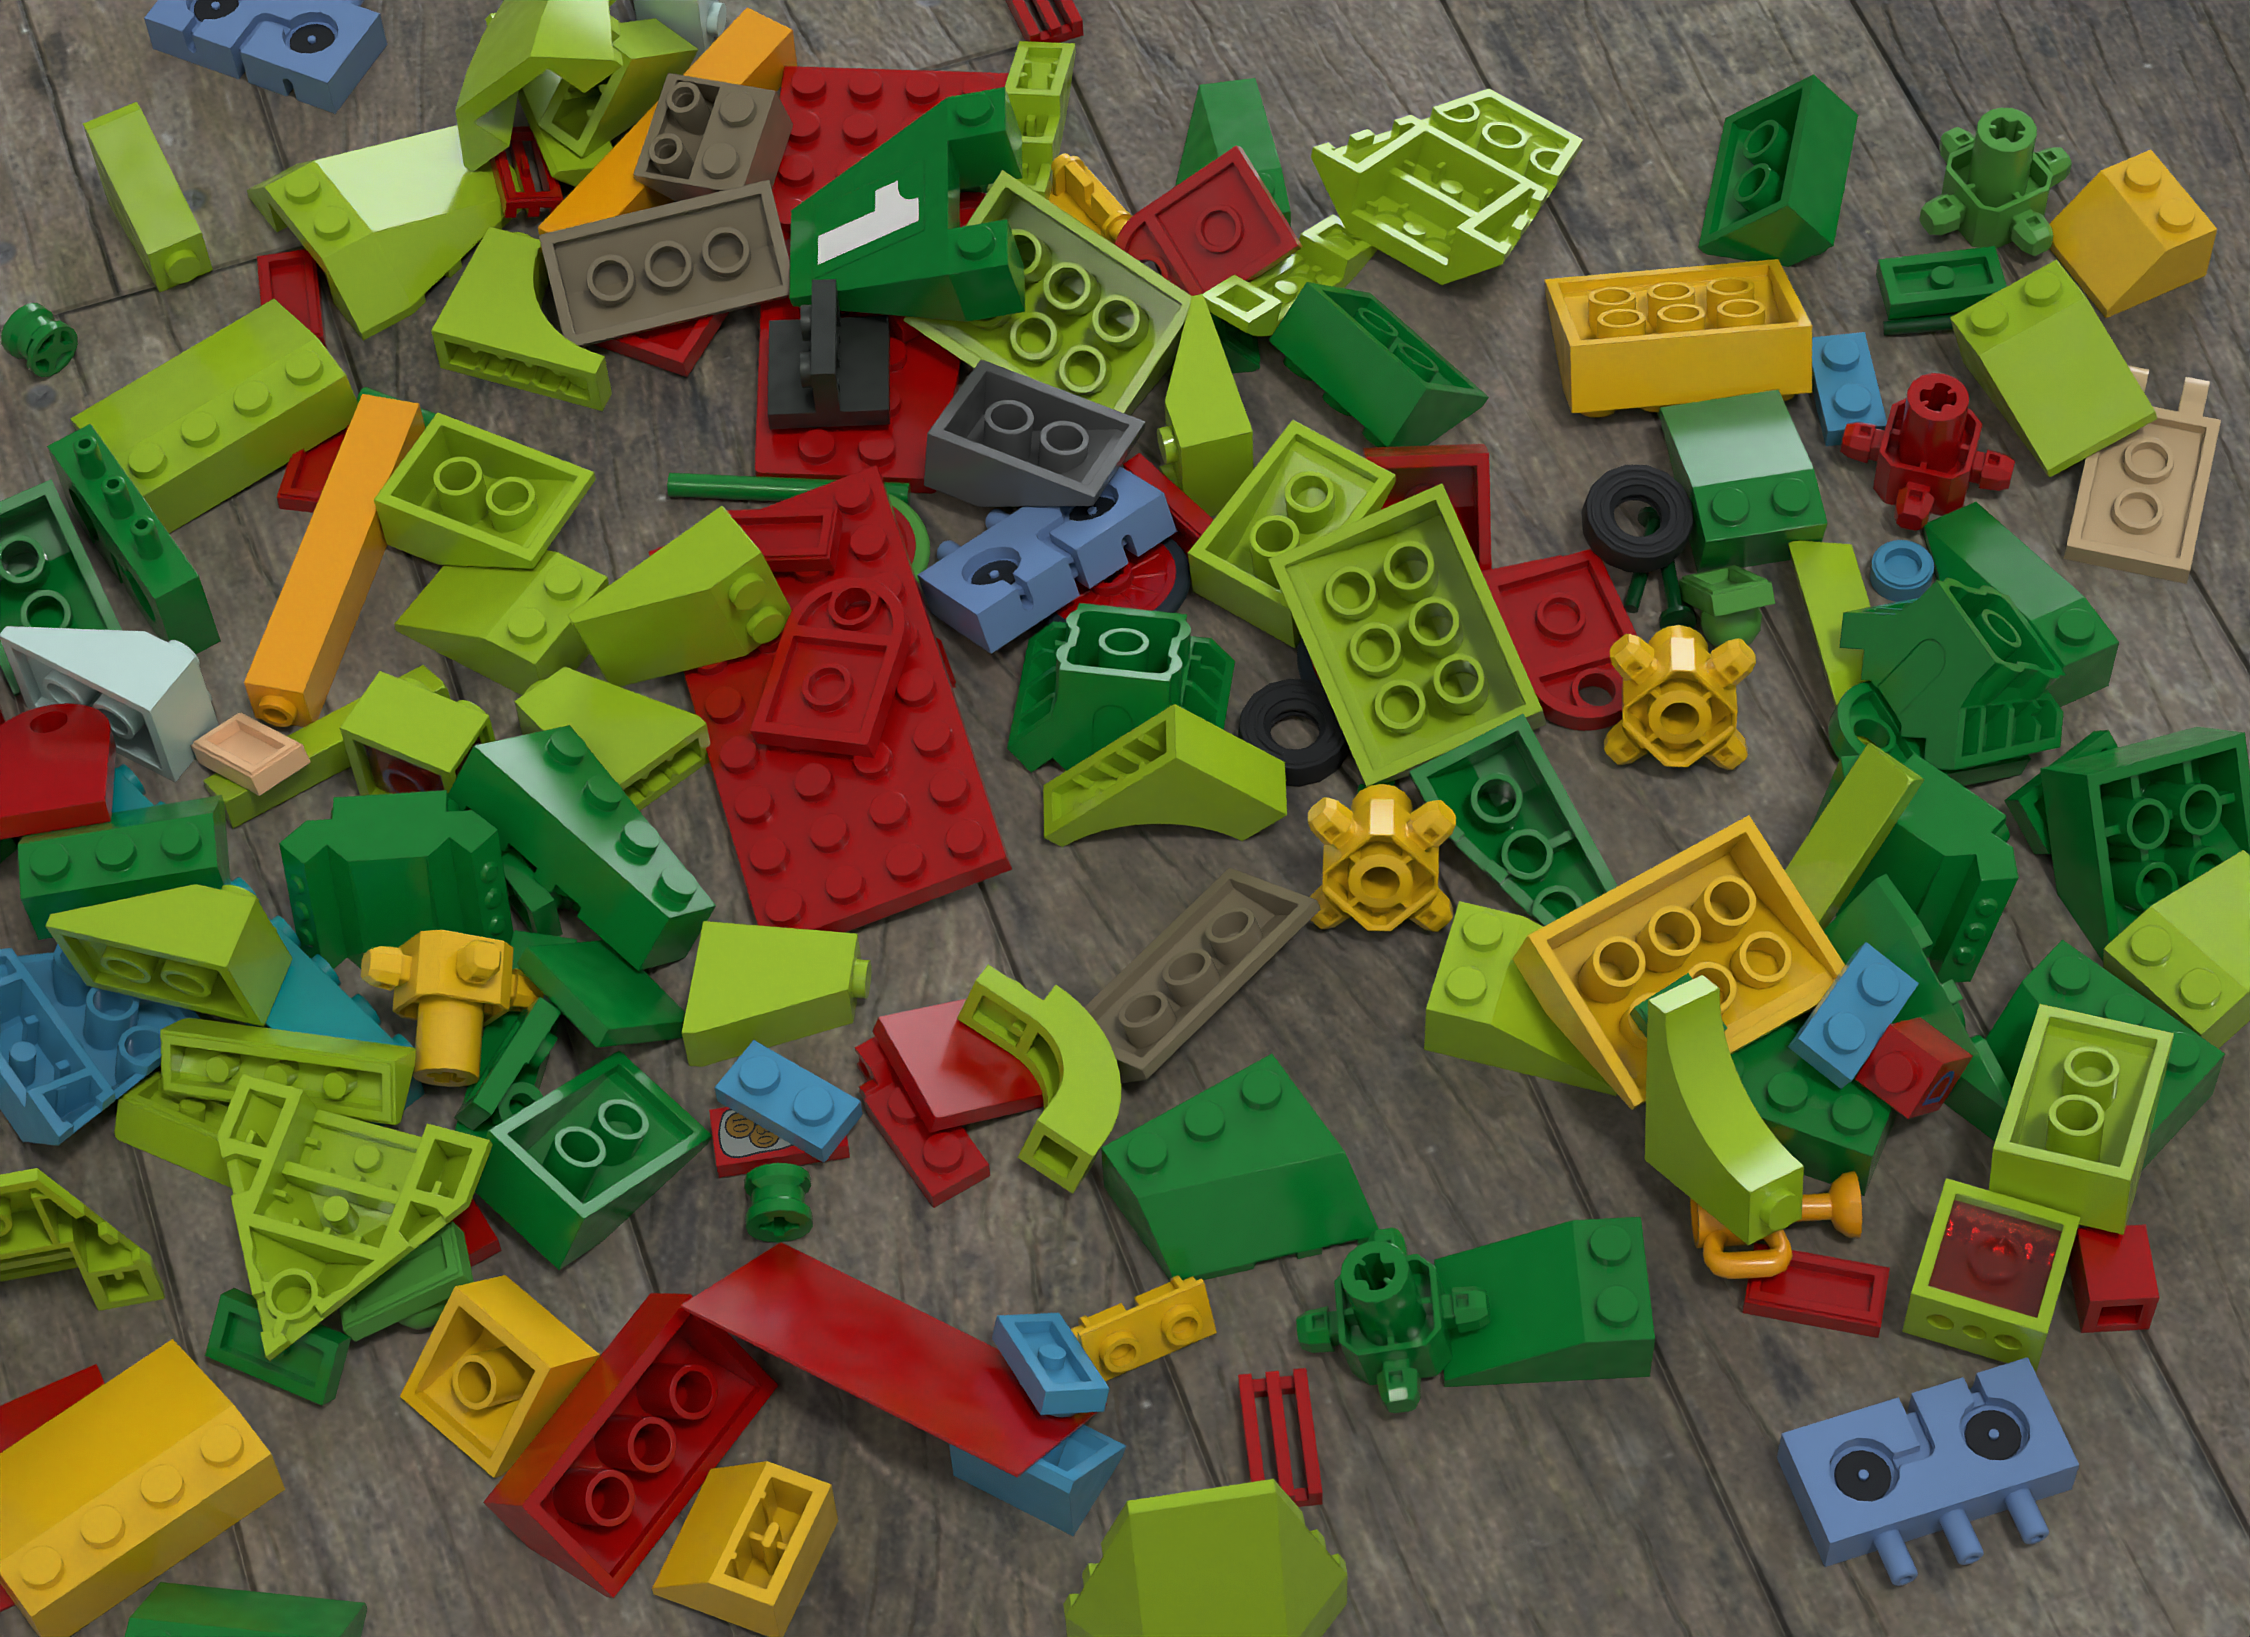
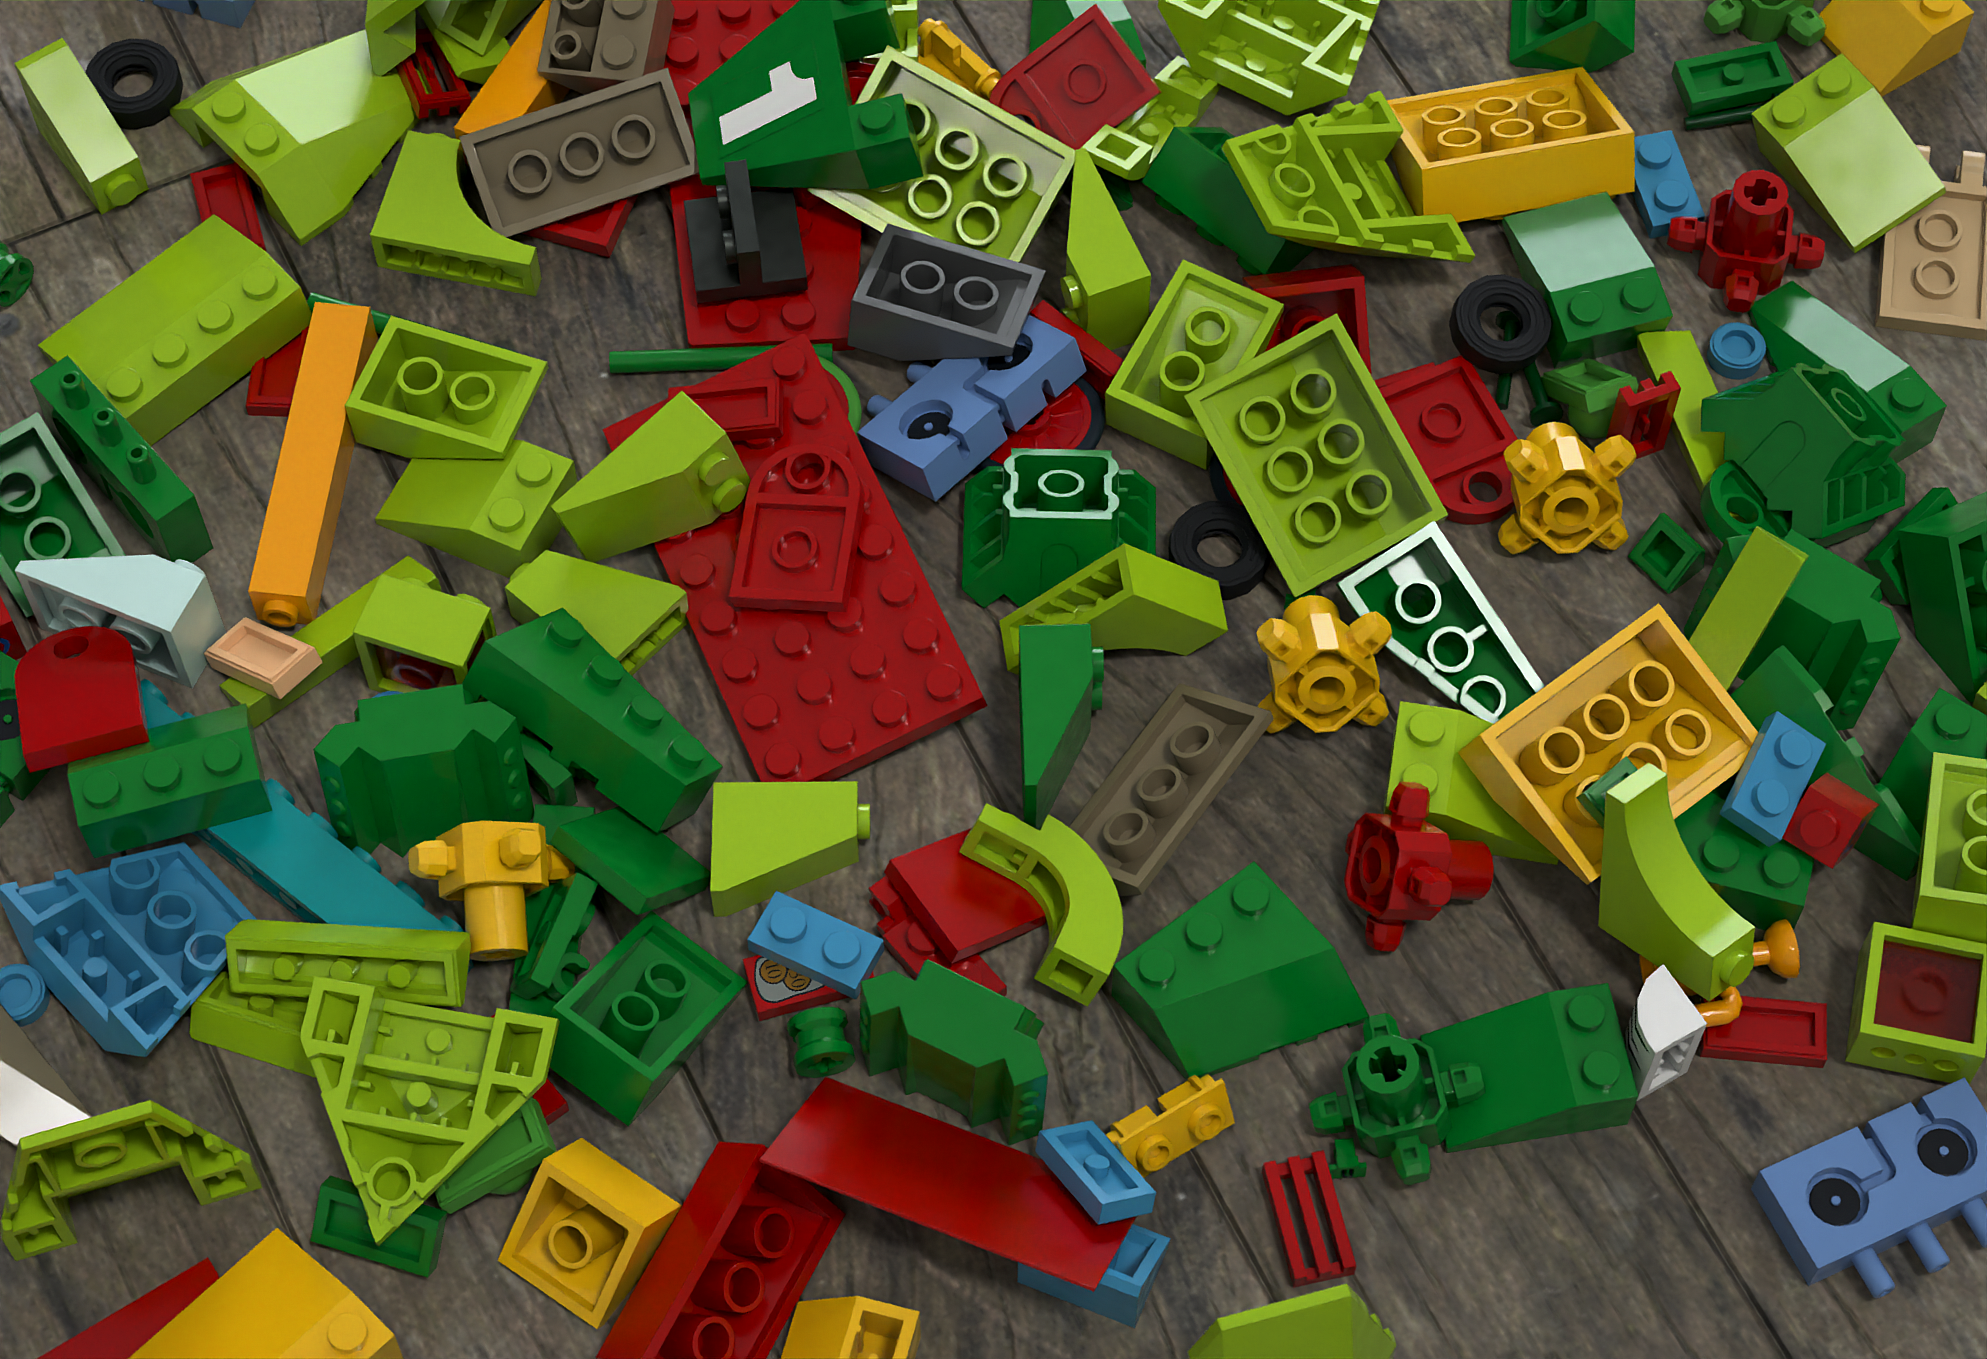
camera: 10 degrees left, 5 degrees up
(180, 949) = (237, 860): lime slope -> none
(213, 133) = (132, 56): none -> black tyre
(917, 1214) = (957, 1046): none -> green slope
(1082, 879) = (1057, 690): none -> green slope
(1330, 1384) = (1346, 1161): none -> green piece
(1441, 1075) = (1409, 867): none -> red piece
(1478, 357) = (1332, 189): none -> lime wedge
(1691, 1279) = (1661, 1033): none -> white brick
(1757, 608) = (1631, 413): none -> red tile
(1789, 778) = (1668, 554): none -> green slope

